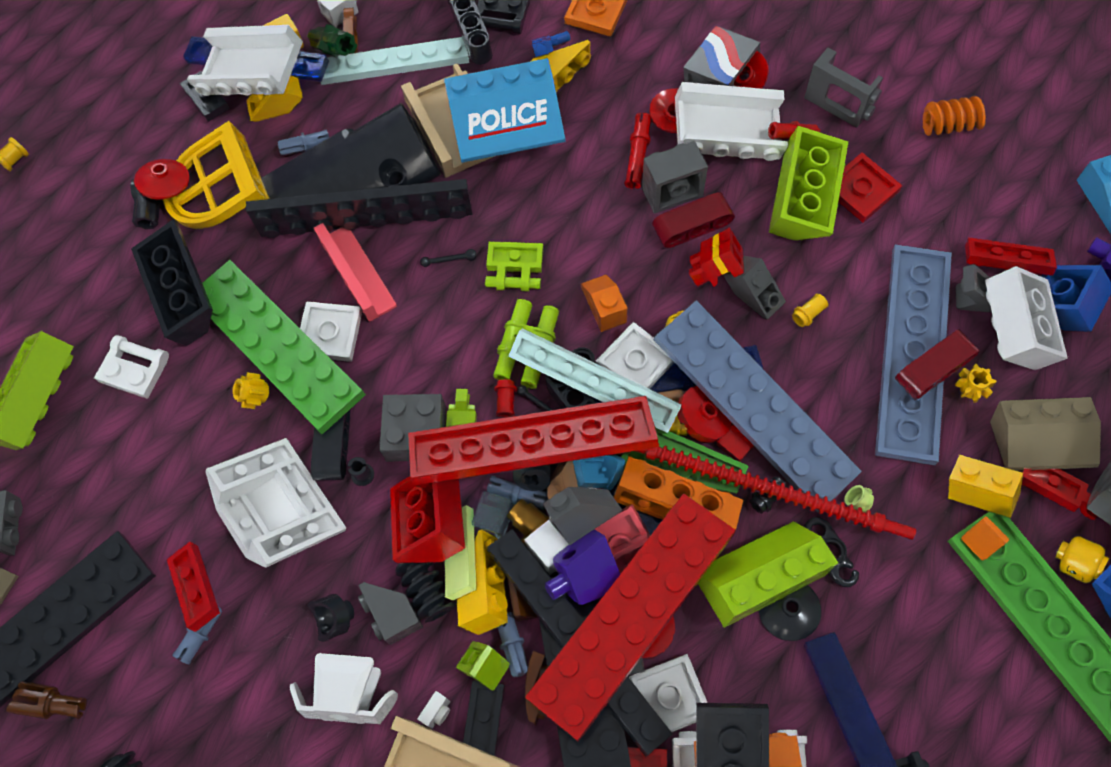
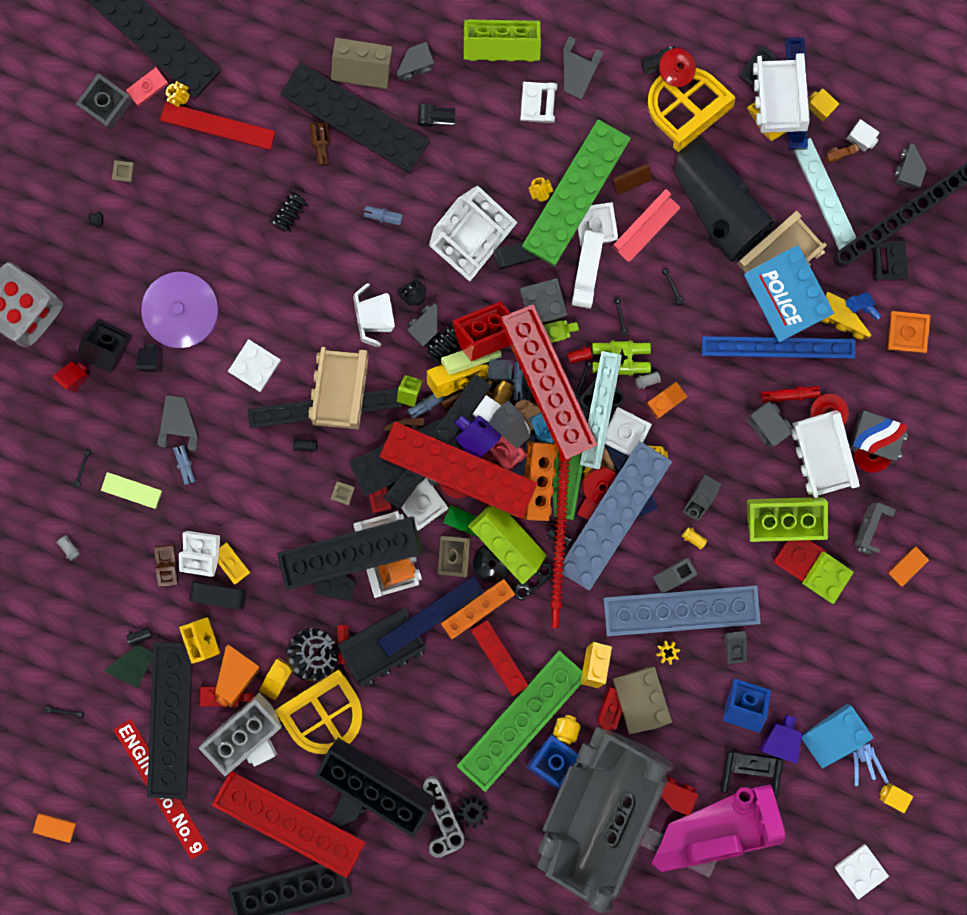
camera: 65 degrees right, 20 degrees up
(83, 519) = (430, 115): none -> black piece
(113, 305) = (578, 70): none -> dark grey flag
(173, 284) = (599, 110): black slope -> none
(192, 586) = (408, 203): red plate -> none
(285, 272) = (632, 179): none -> reddish brown slope
(302, 142) = (736, 154): sand blue axle -> none
(332, 41) = (820, 147): dark green piece -> none
(361, 208) = (685, 210): black plate -> none
(361, 472) = (503, 283): black pin -> none
(387, 354) = (587, 269): none -> white beam
(435, 710) = (377, 371): white plate -> none
(491, 333) = (617, 301): none -> black hinge
(514, 258) = (682, 330): lime plate -> none
(568, 319) = (647, 380): none -> light grey pin
(570, 154) = (772, 348): none -> blue plate
(693, 220) = (742, 446): dark red beam -> none
(709, 640) = (459, 519): none -> green slope
(716, 257) = (712, 469): red hips -> none
(768, 664) = (453, 556): none -> dark tan slope
(785, 130) = (833, 500): red axle -> none
(859, 497) = (570, 592): yellowish green plate -> none
(861, 343) = (675, 575): none -> dark grey slope
(863, 648) = (477, 608): none -> orange brick
(898, 71) = (908, 566): none -> orange tile
(899, 159) = (827, 577): none -> lime plate
(937, 364) = (670, 624): dark red beam -> none
(949, 634) = (499, 657): none -> red brick
(954, 115) = (873, 610): orange piece -> none
(984, 538) = (561, 668): orange slope -> none
(1008, 255) = (768, 663): red plate -> none
(1025, 319) = (717, 676): white brick -> none

